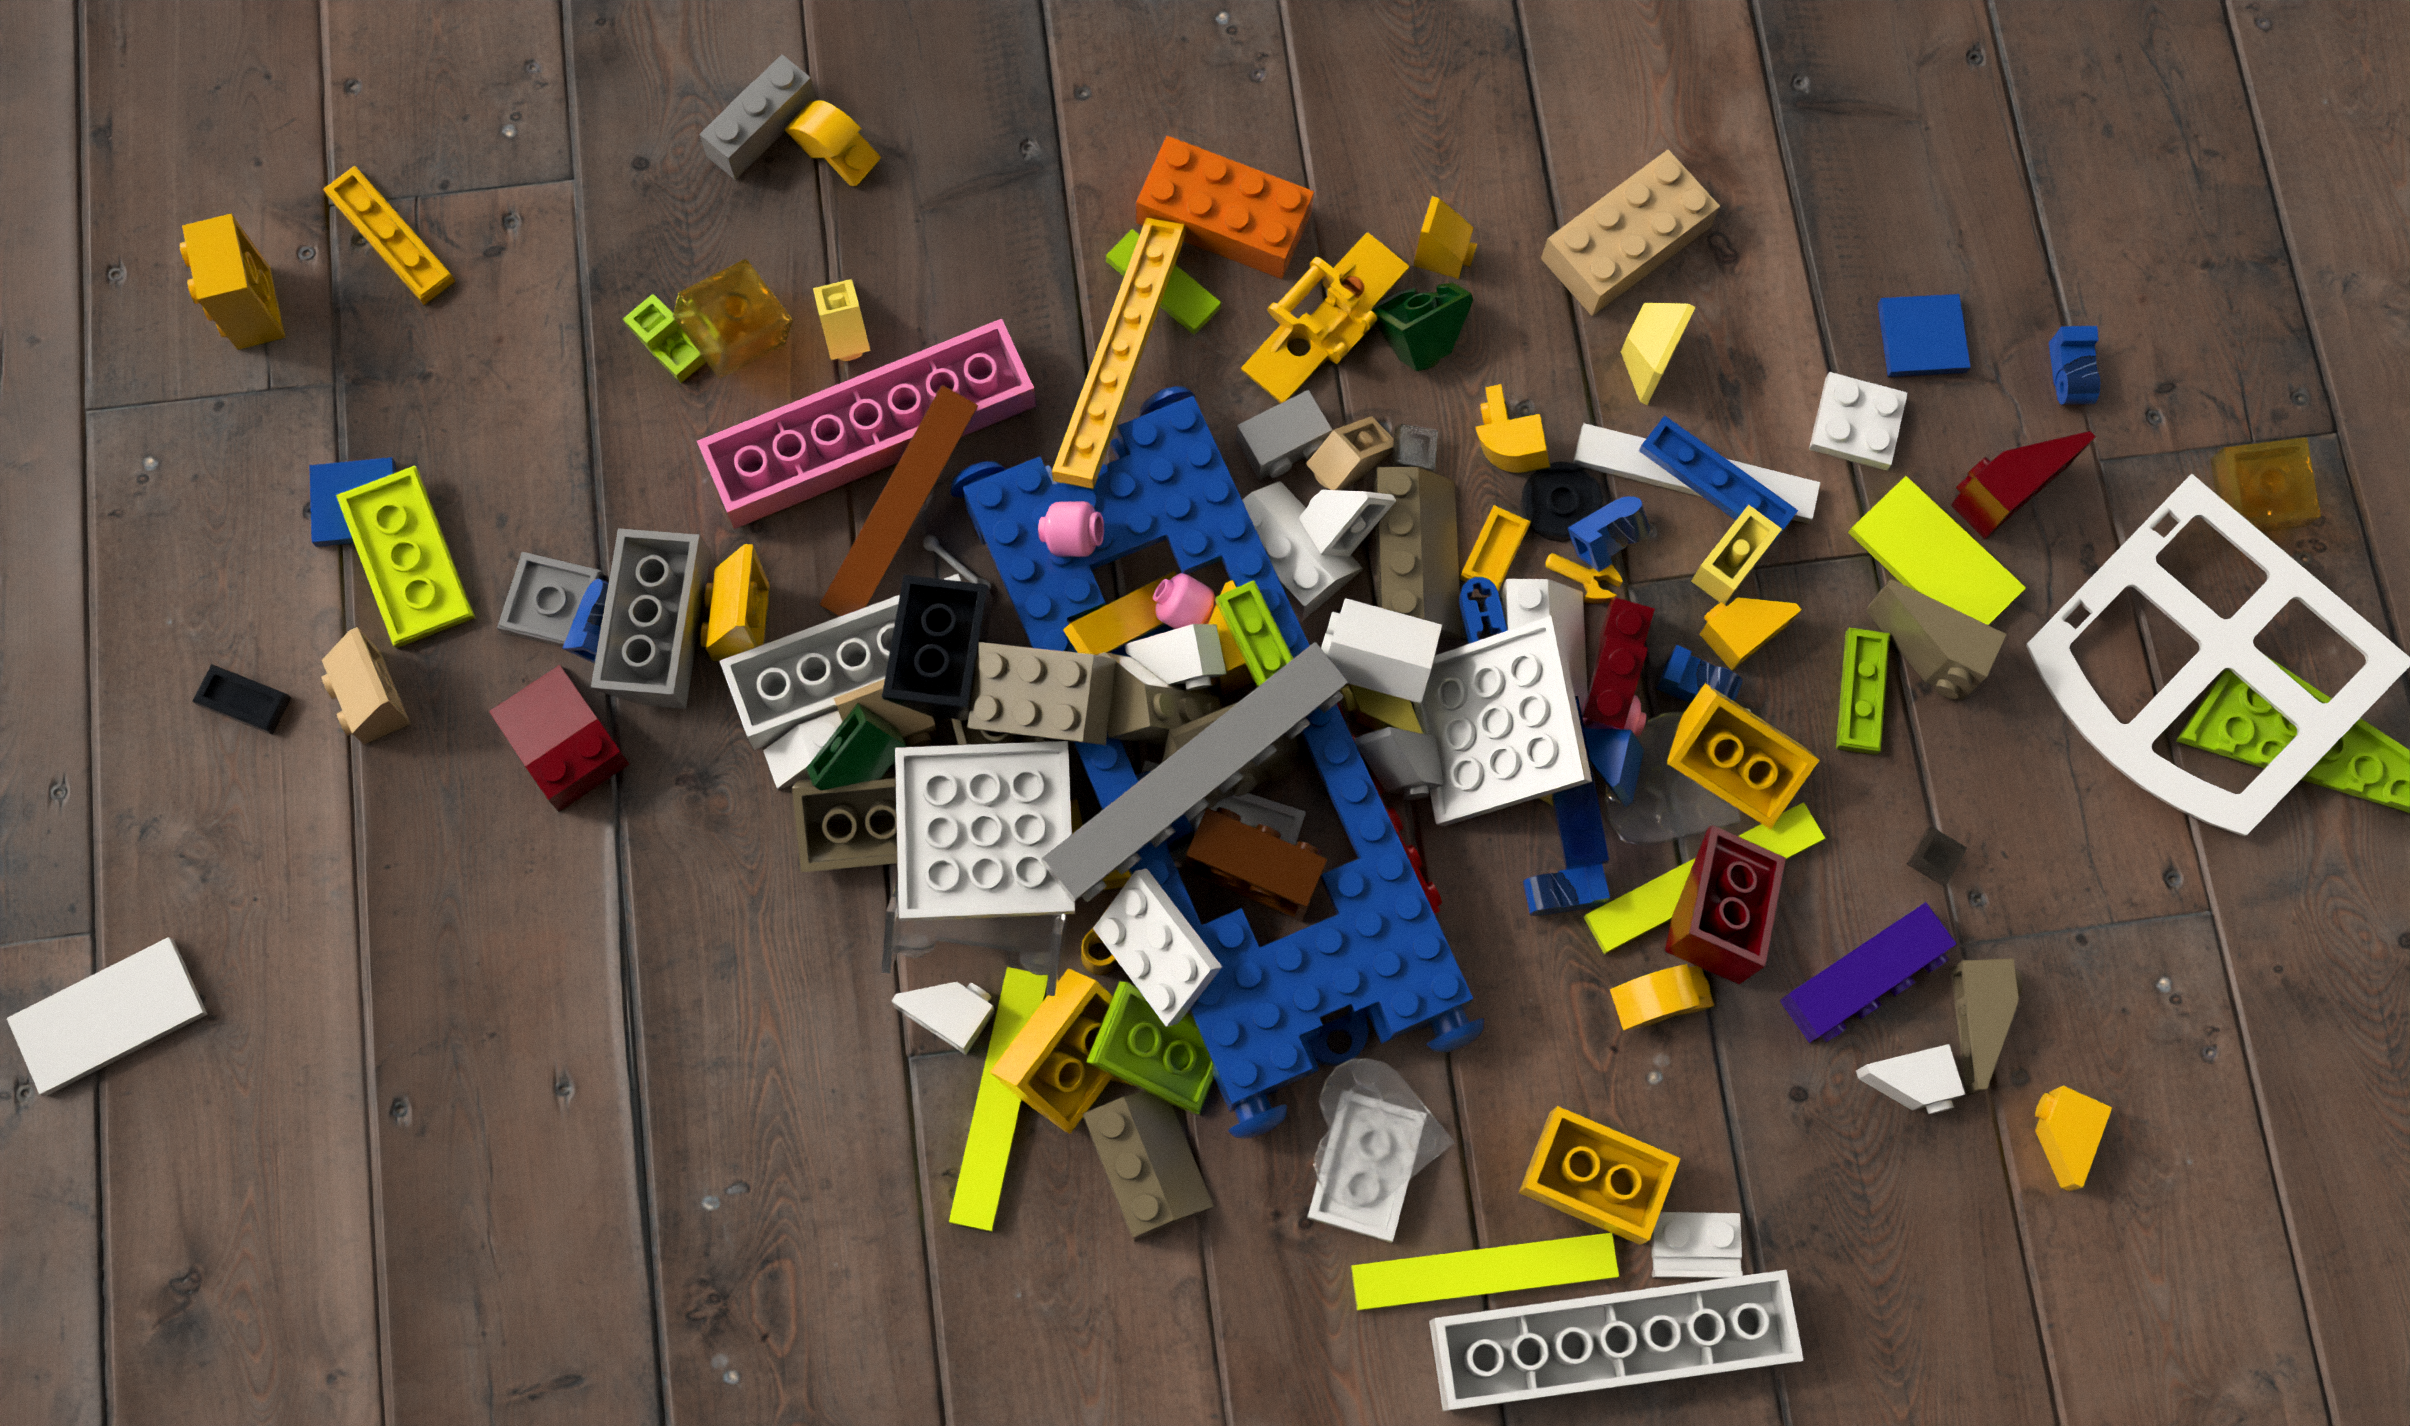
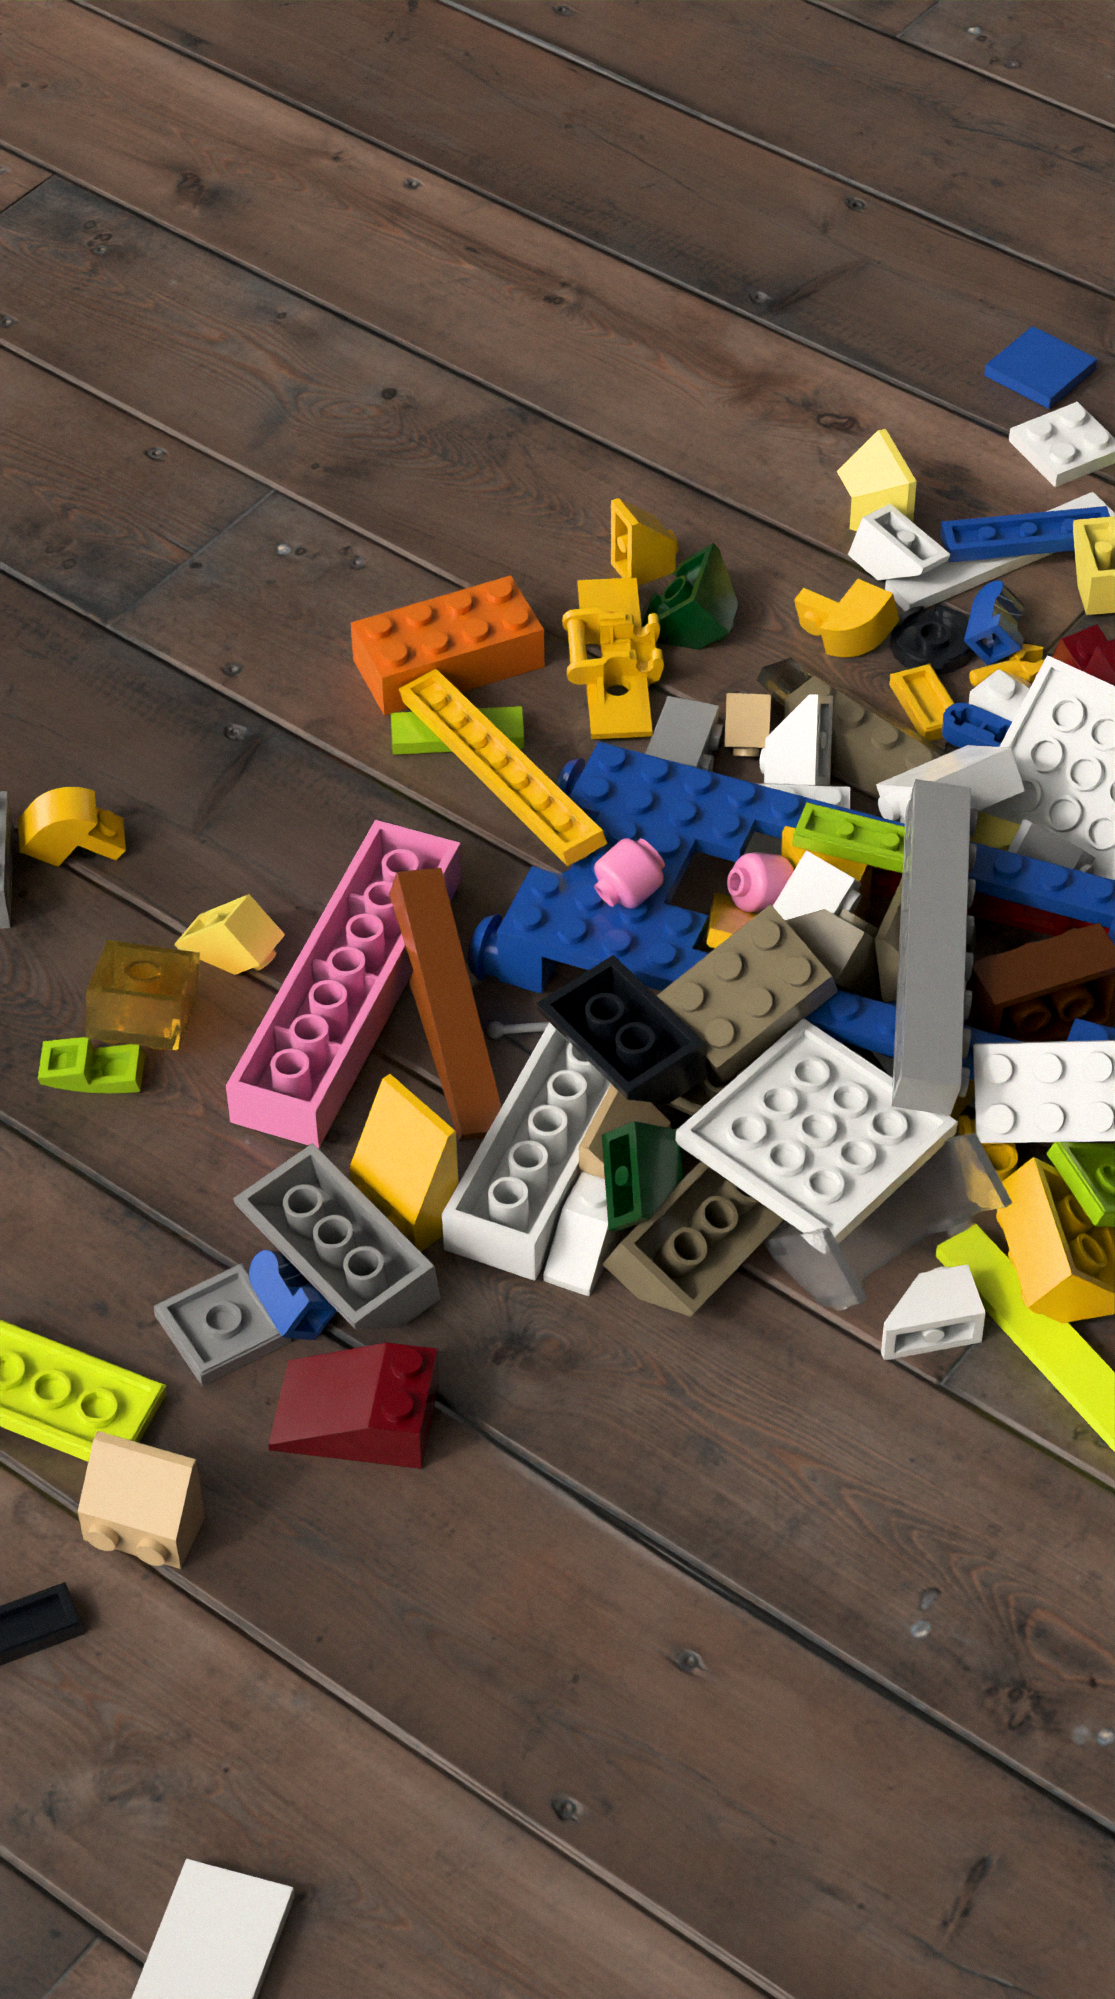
camera: 40 degrees left, 25 degrees down
(1610, 408) = (894, 546): none -> white slope
(1630, 232) = (765, 448): tan brick -> none

